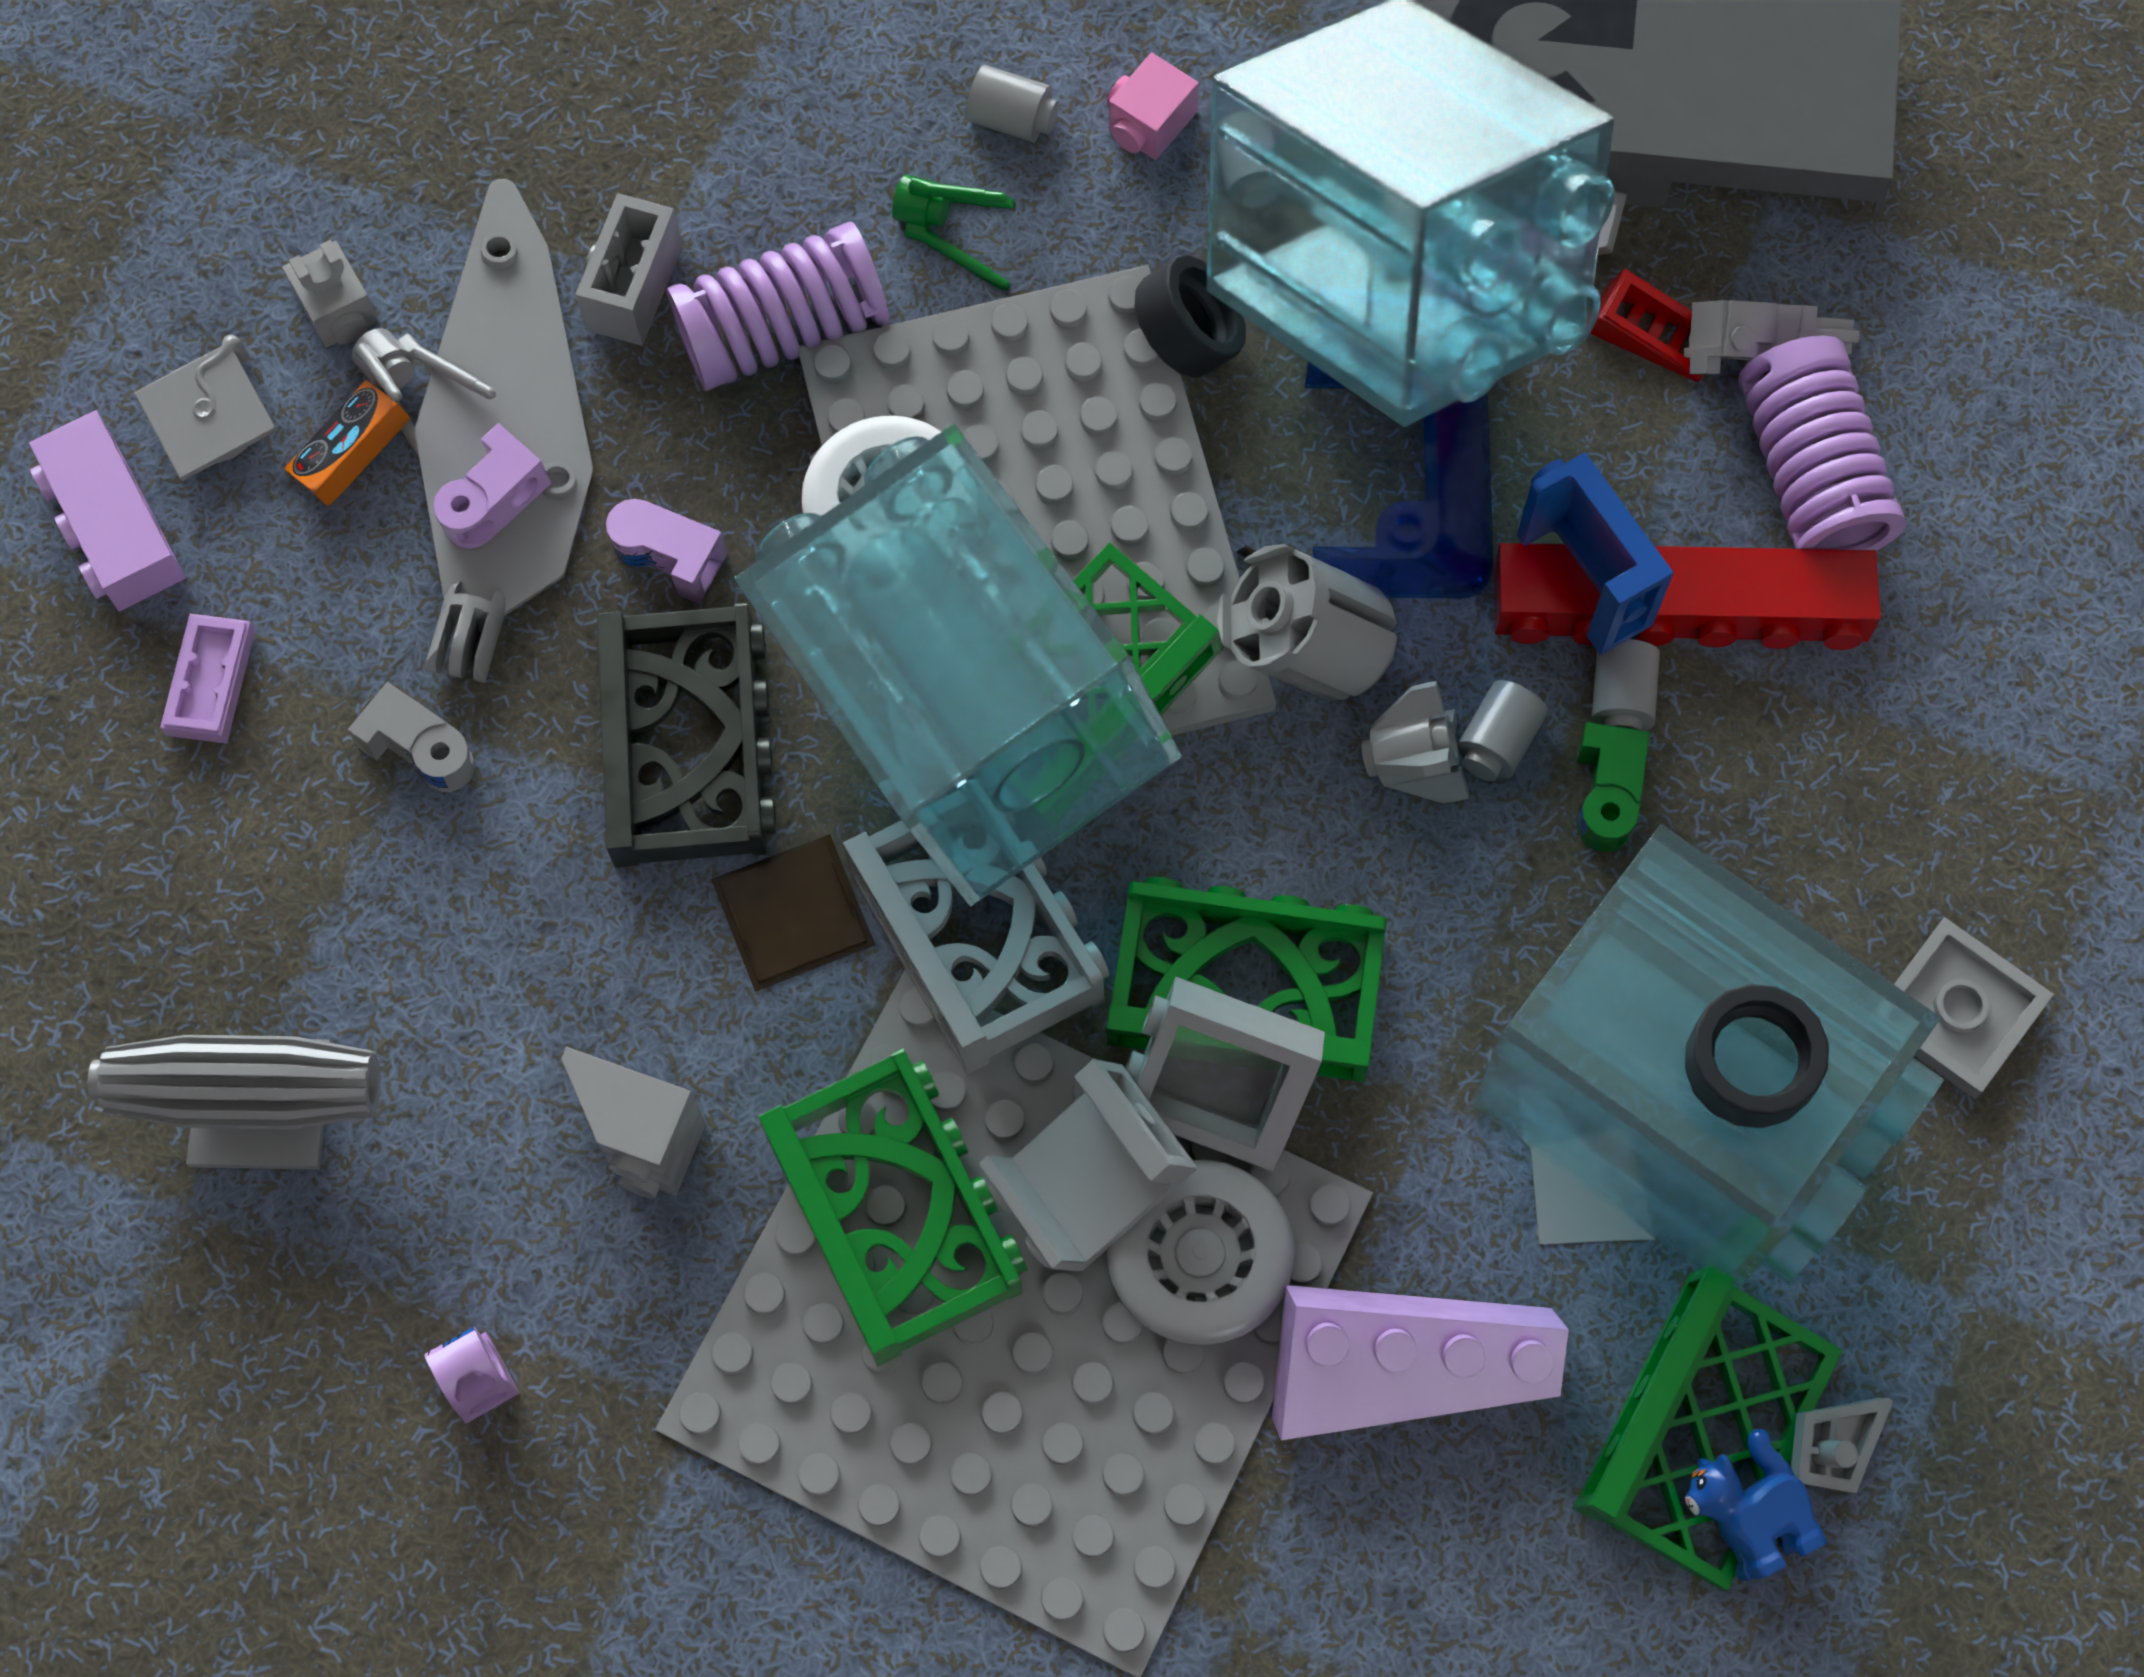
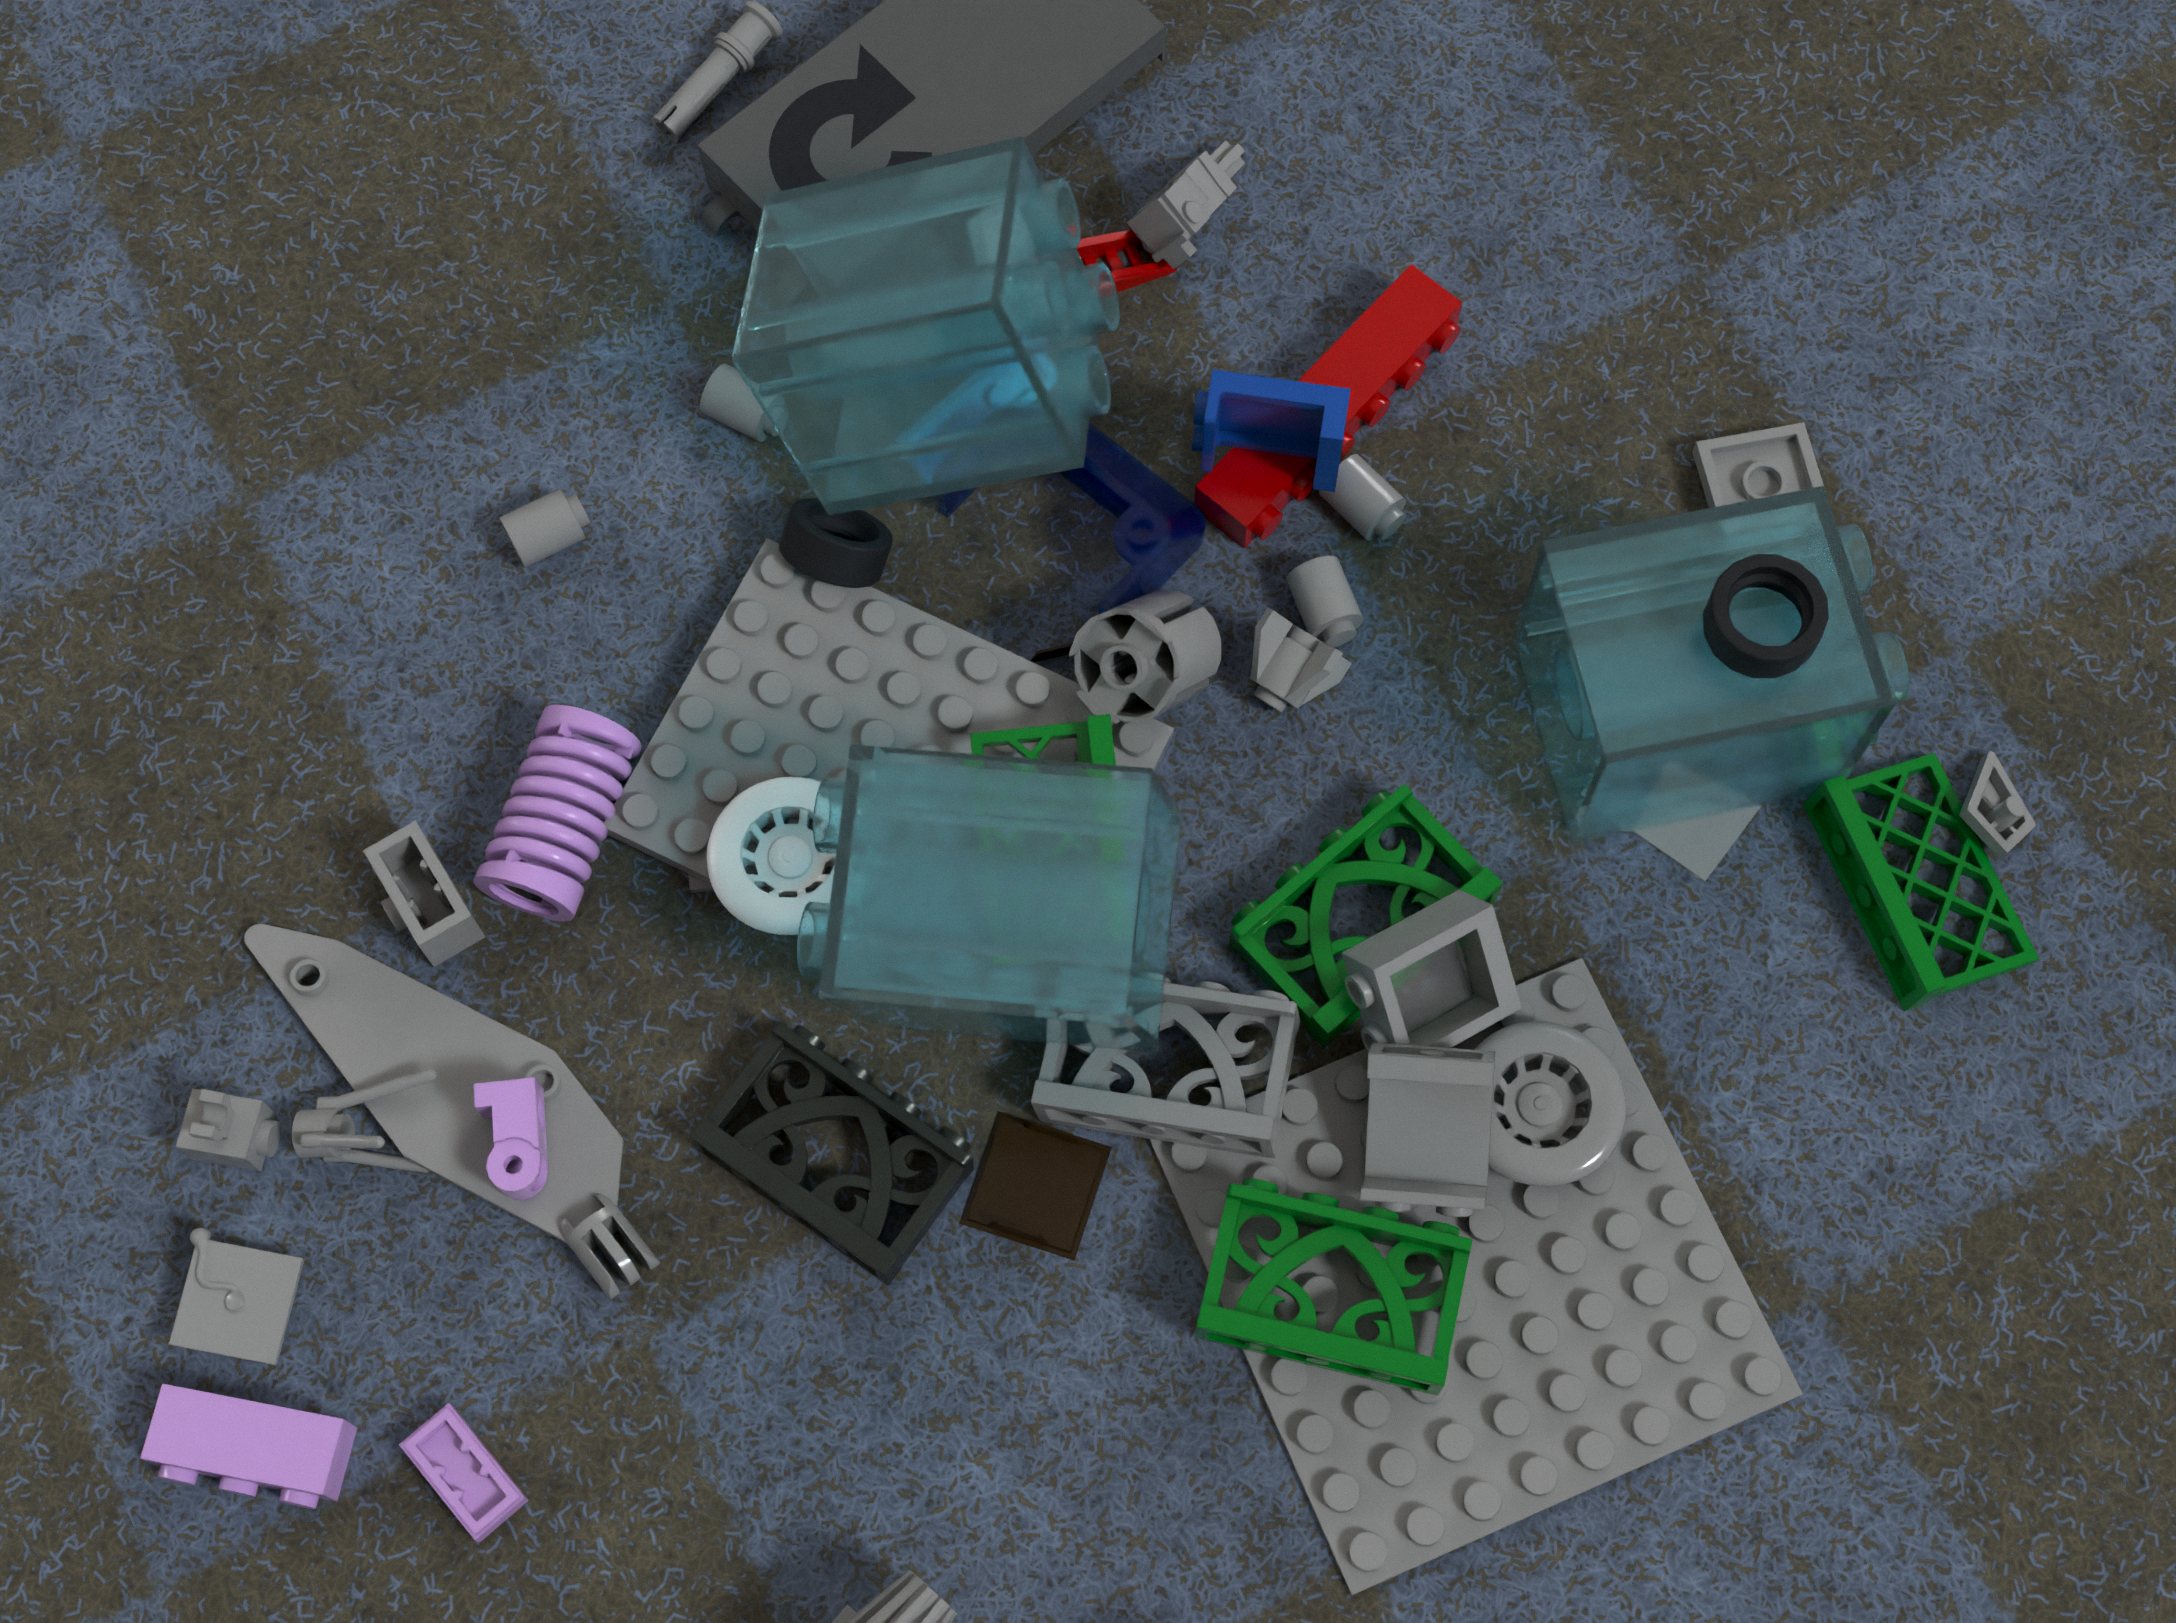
camera: 50 degrees left, 0 degrees up
(347, 443) = (361, 1215): slope -> none
(417, 736) = (660, 1347): light grey leg -> none
(638, 1122) = (1119, 1423): light grey slope -> none
(670, 542) = (668, 1042): lavender leg -> none
(928, 203) = (565, 646): green plant -> none
(1151, 106) = (638, 437): bright pink brick -> none
(1403, 1358) = (1727, 1030): lavender wedge -> none
(1616, 784) = (1426, 563): green leg -> none
(1759, 1515) = (2011, 893): blue animal -> none
(1821, 514) = (1306, 219): lavender piece -> none

